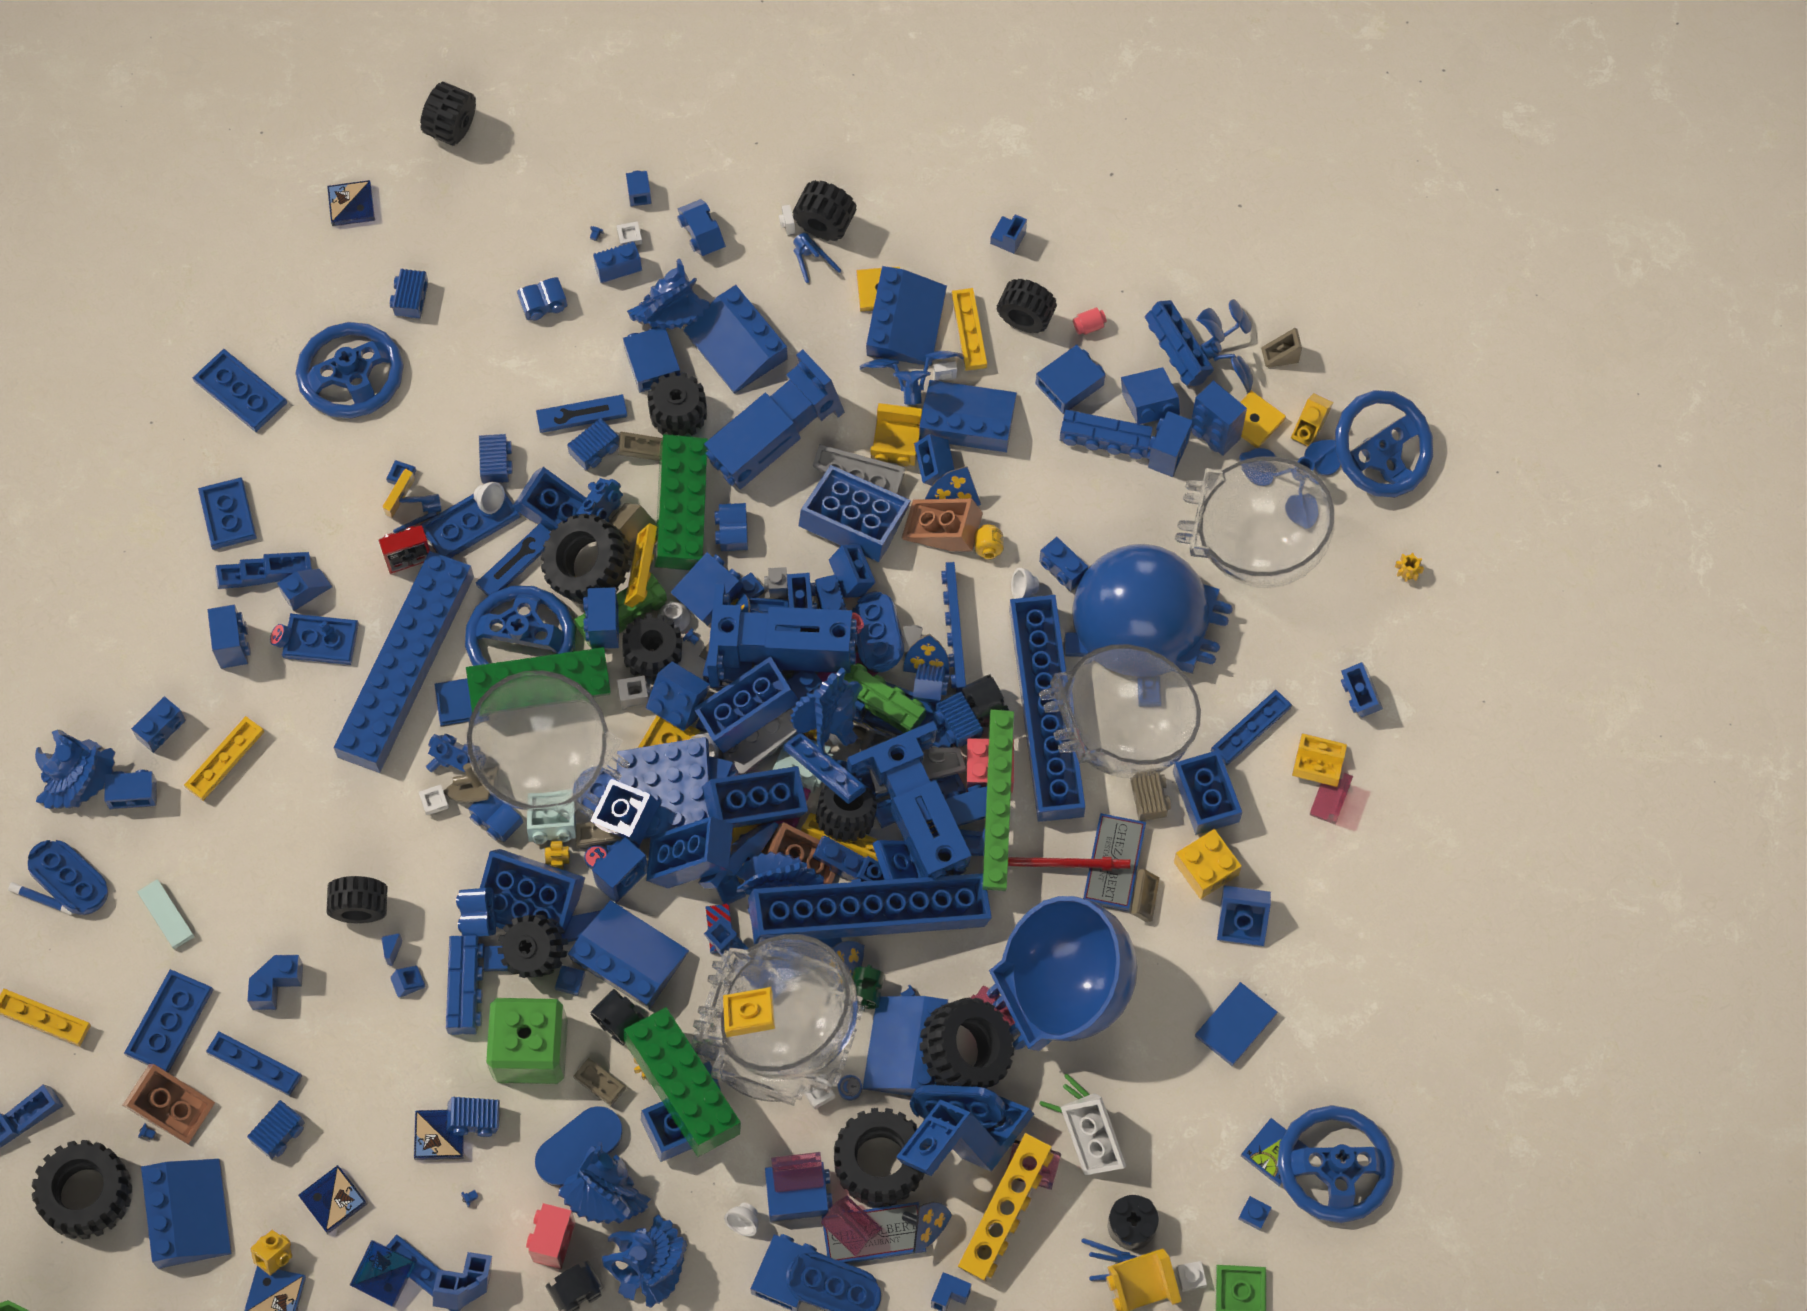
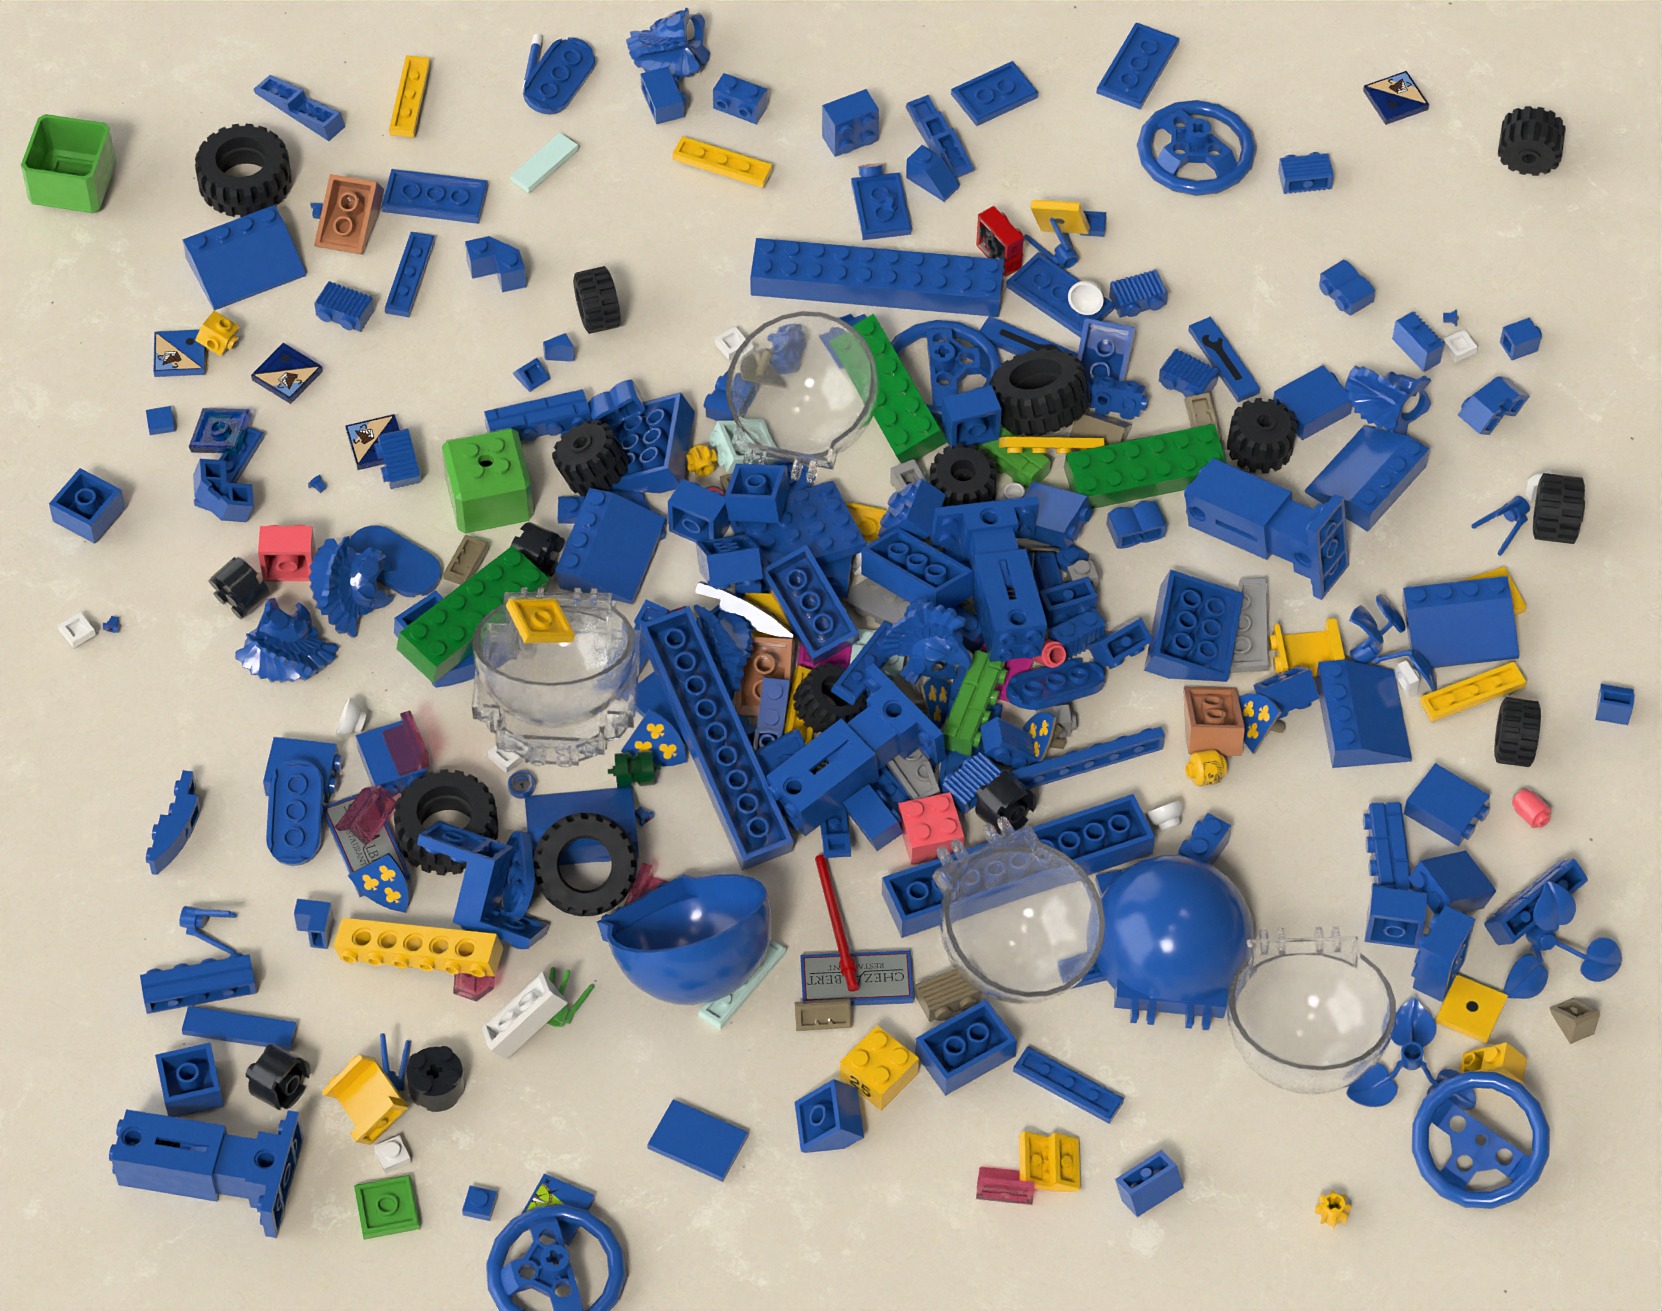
camera: 75 degrees right, 10 degrees down
(998, 800) = (882, 832): bright green plate -> none

